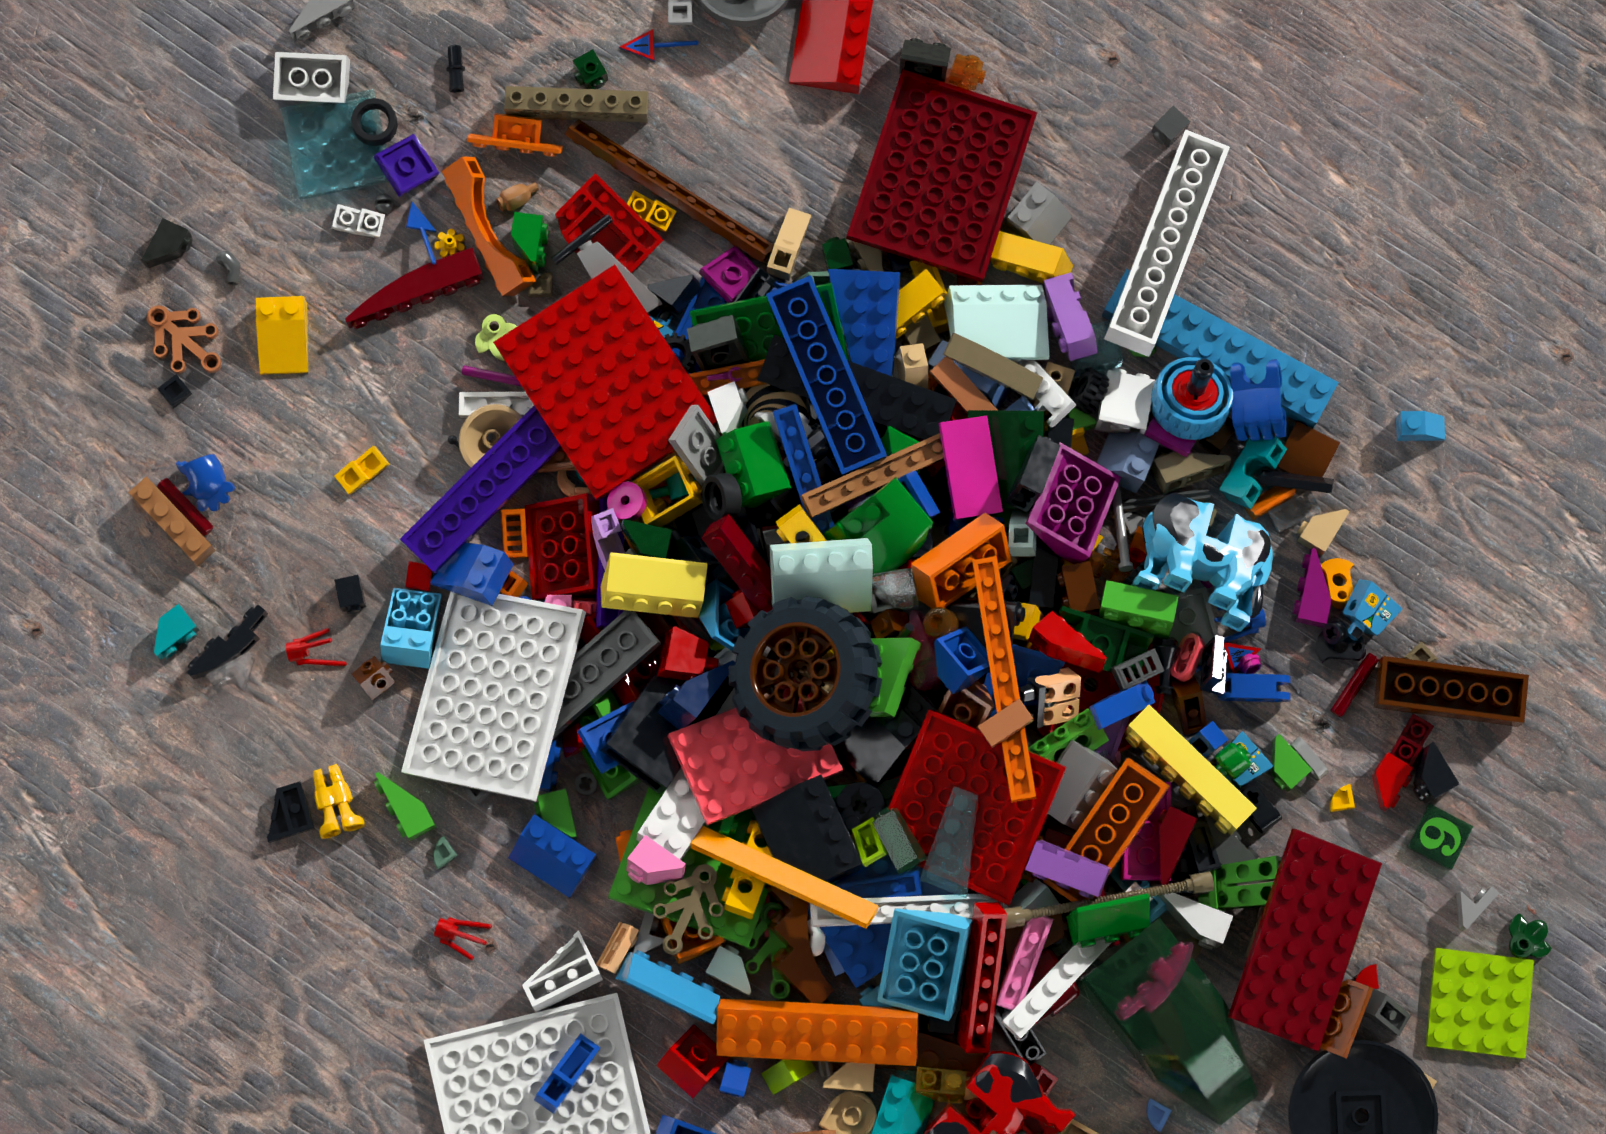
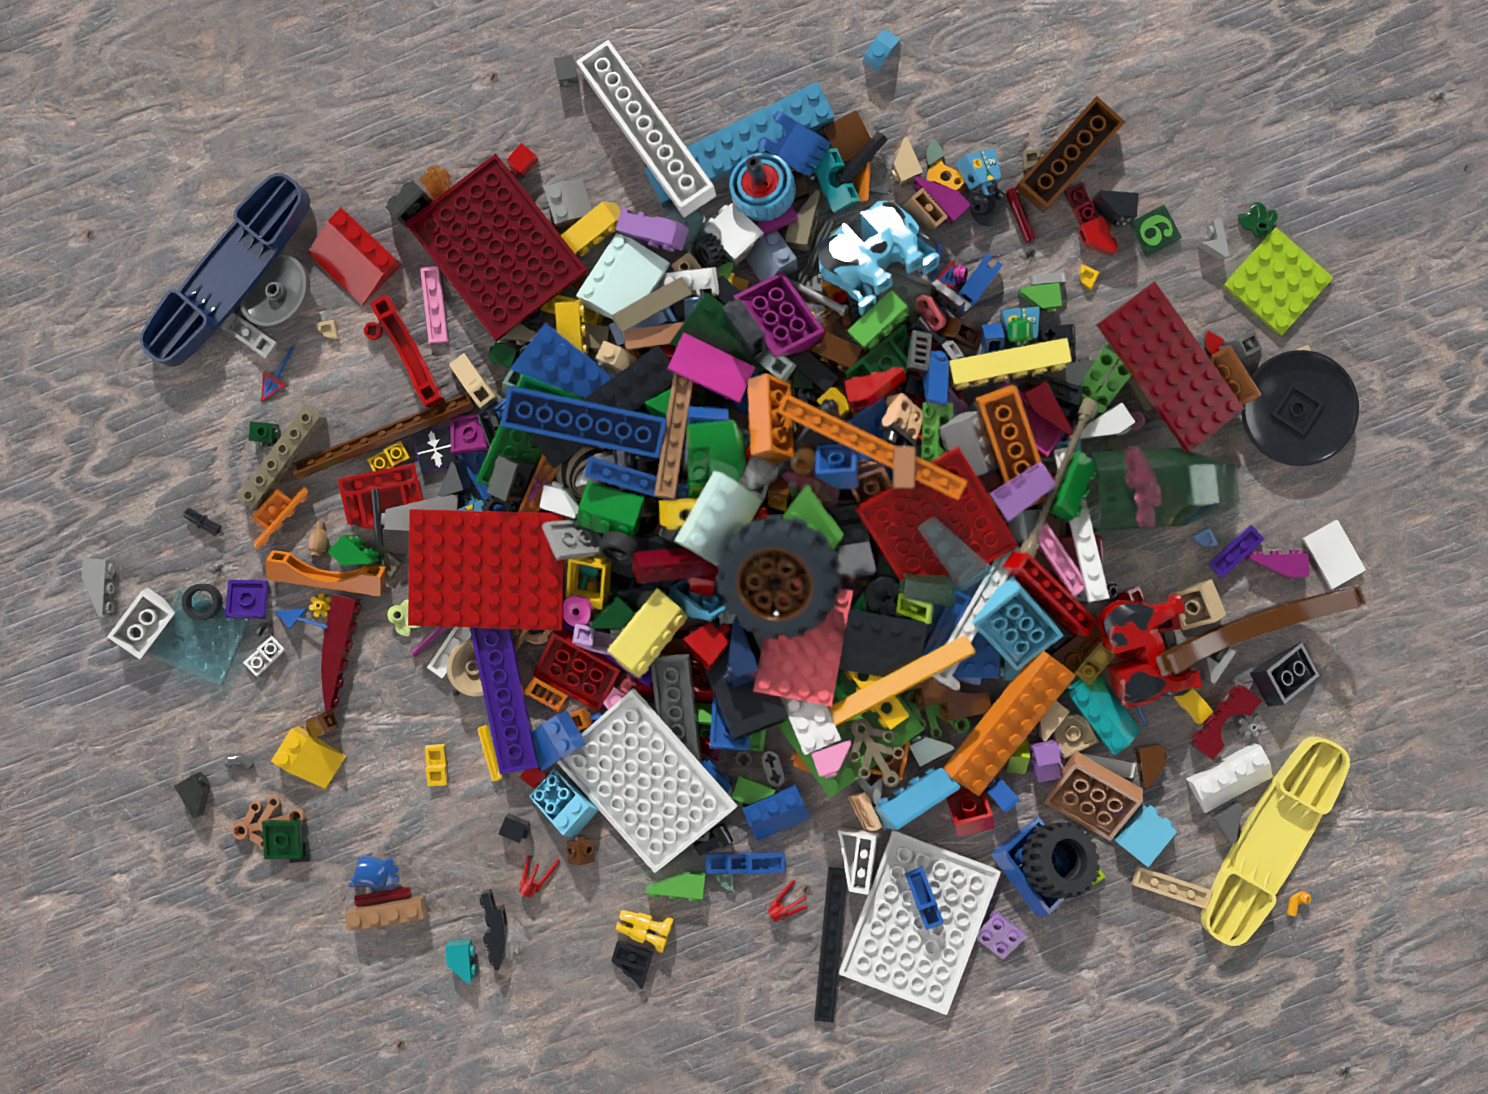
camera: 50 degrees left, 10 degrees up
(179, 364) = (282, 839): none -> dark green tile
(327, 324) = (321, 724): none -> reddish brown slope
(412, 516) = (489, 752): none -> yellow axle
(446, 1012) = (830, 945): none -> black tile
(475, 860) = (745, 862): none -> blue slope
(484, 813) = (718, 838): none -> black piece
(601, 825) = (777, 766): none -> light grey beam
(691, 250) = (434, 449): none -> black tile
(740, 65) = (328, 329): none -> tan tile
(765, 104) = (367, 331): none -> red bush
(783, 142) = (398, 332): none -> red arch
(803, 1102) = (1045, 759): none -> medium lavender brick
(839, 154) = (434, 305): none -> bright pink tile
(1048, 142) = (521, 160): none -> red brick
(1099, 690) = (914, 385): none -> black tile
(1164, 705) = (953, 350): none -> light grey slope
(1232, 958) = (1140, 420): none -> bright pink plate
(1287, 582) = (925, 211): none -> medium nougat brick
(1354, 552) = (934, 153): none -> sand green tile

